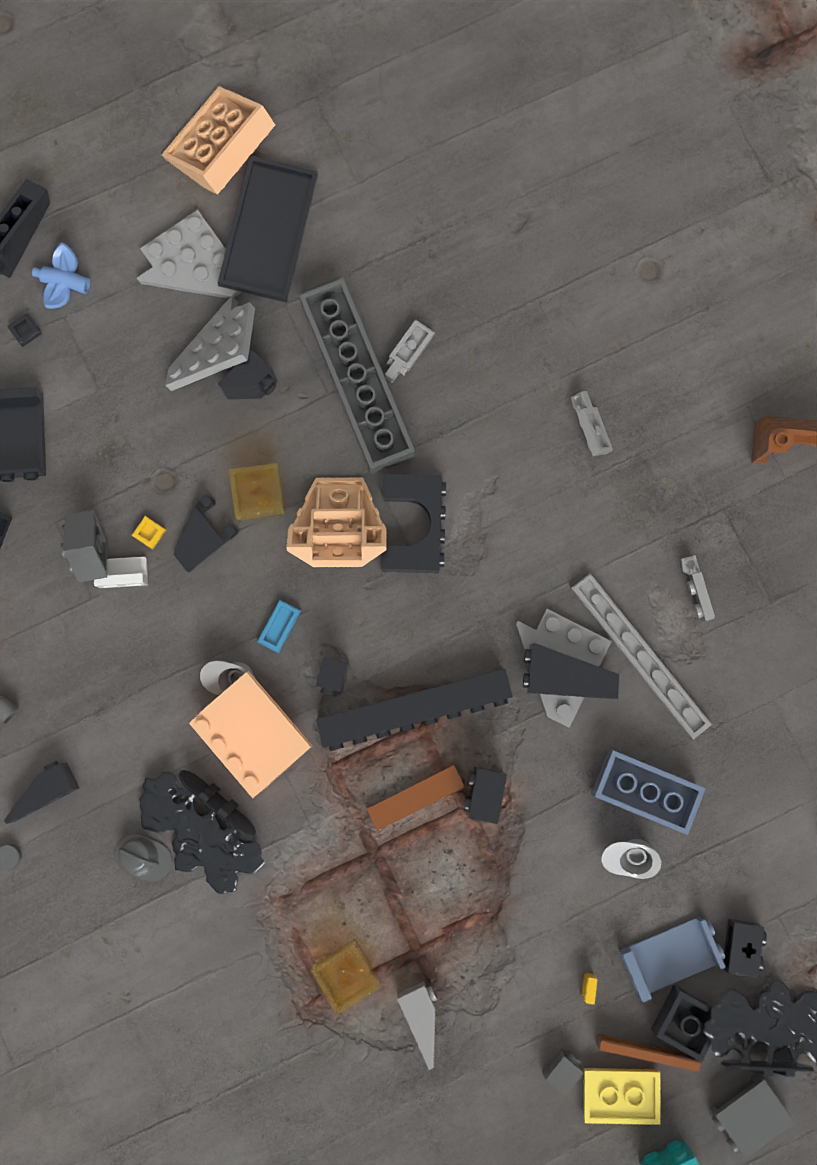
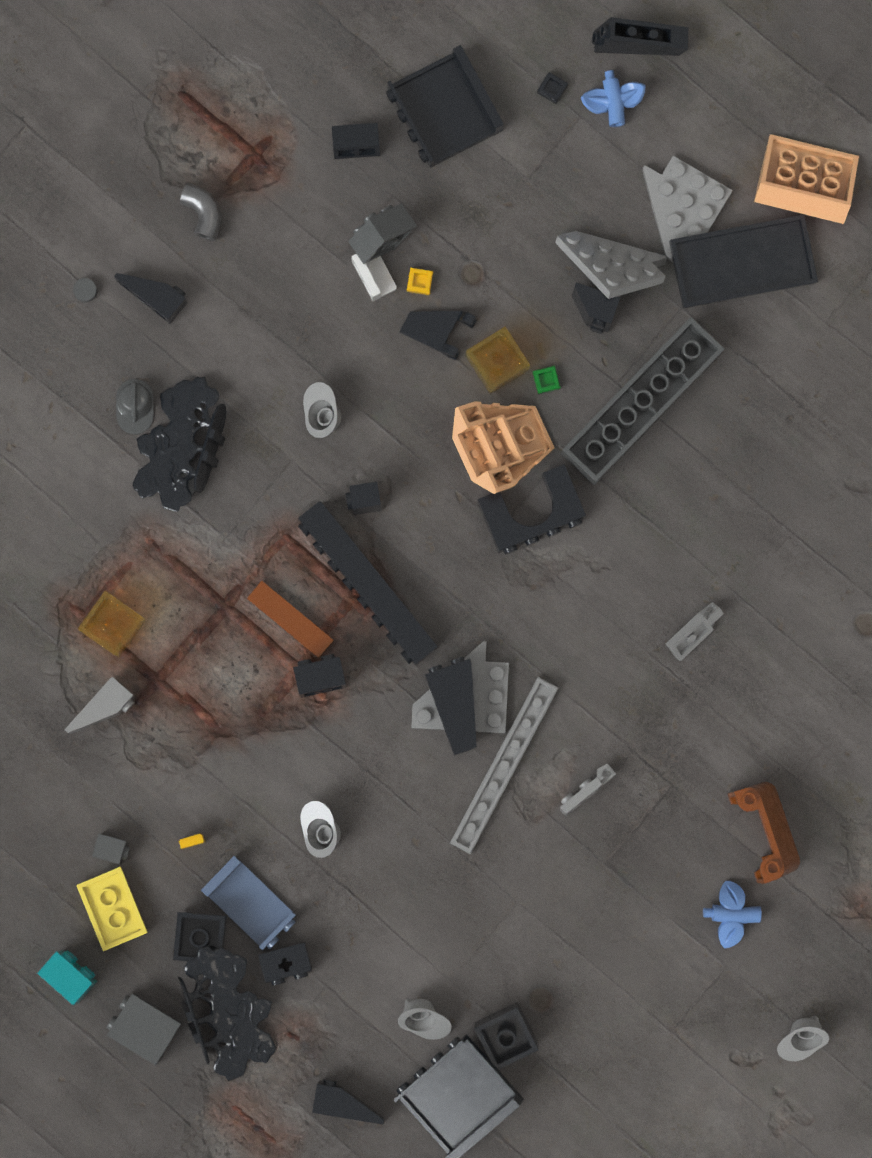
camera: 60 degrees right, 0 degrees up
(250, 734) = (282, 450): light nougat slope -> none
(279, 626) = (387, 433): dark azure tile -> none
(296, 456) = (546, 380): none -> green tile
(408, 350) = (688, 437): light grey hinge -> none
(647, 1052) = (159, 915): dark orange tile -> none
(648, 791) = (384, 818): sand blue brick -> none

